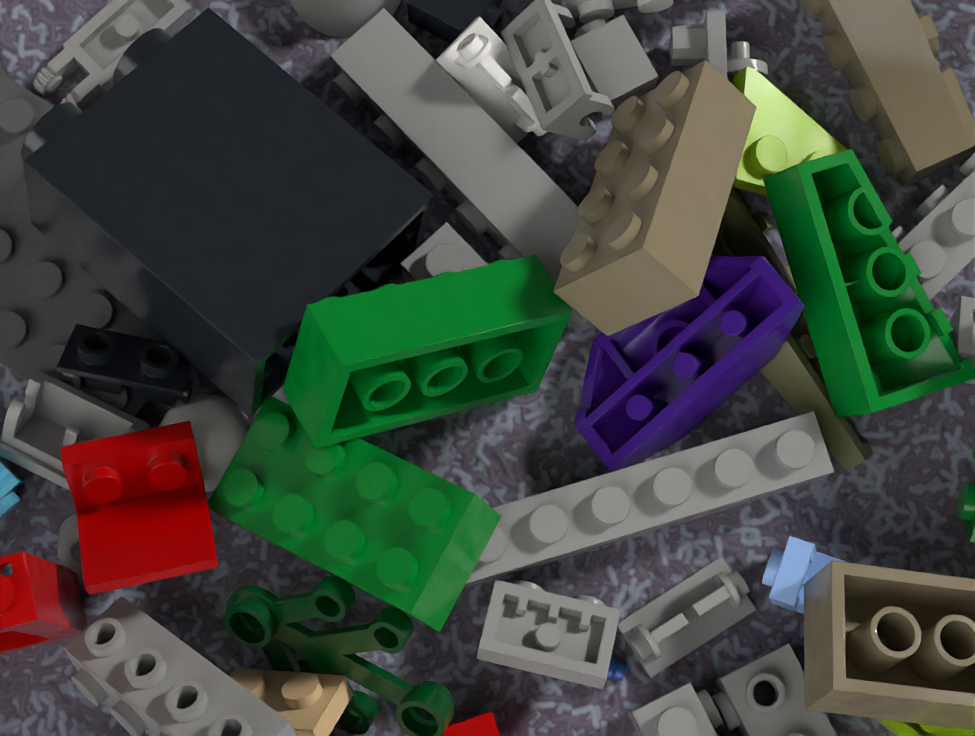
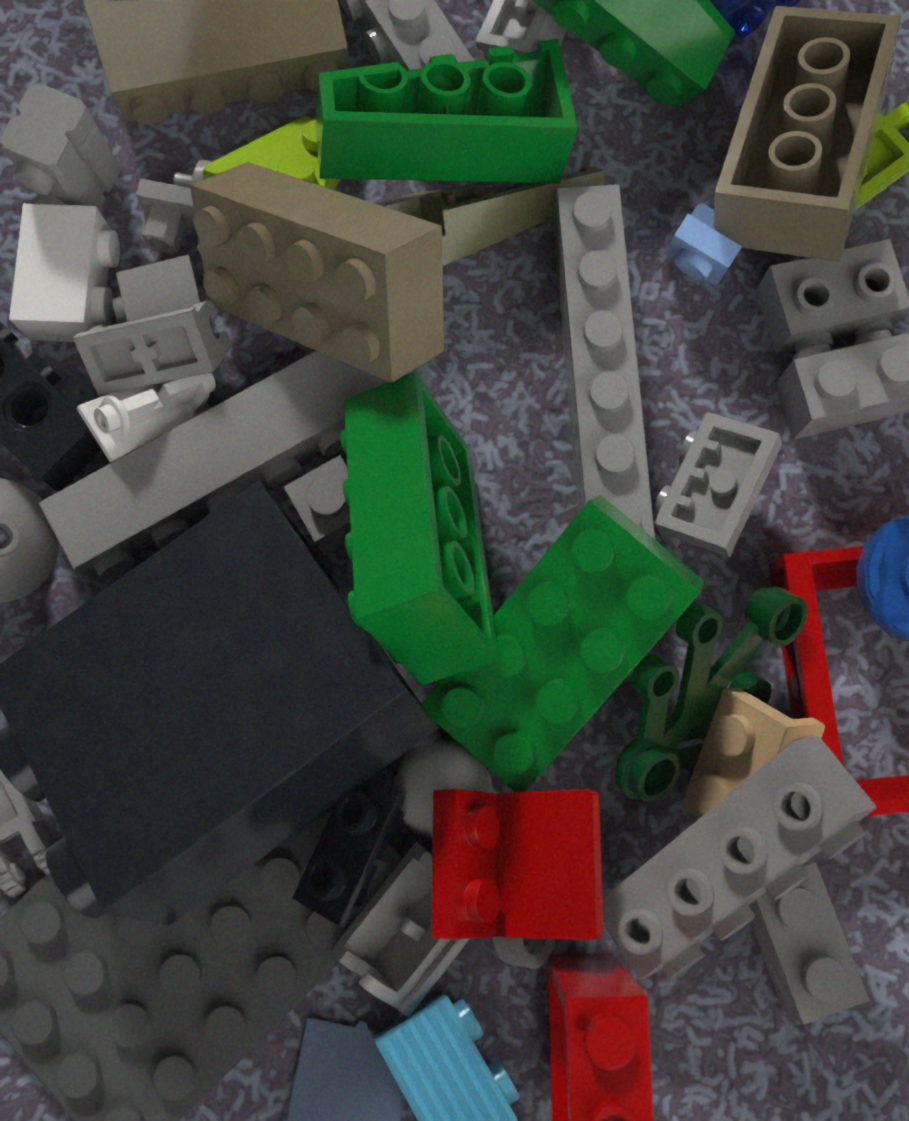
camera: 75 degrees left, 0 degrees up
(682, 364) = (491, 326): dark purple wedge -> none
(686, 616) = (714, 359): light grey hinge -> none

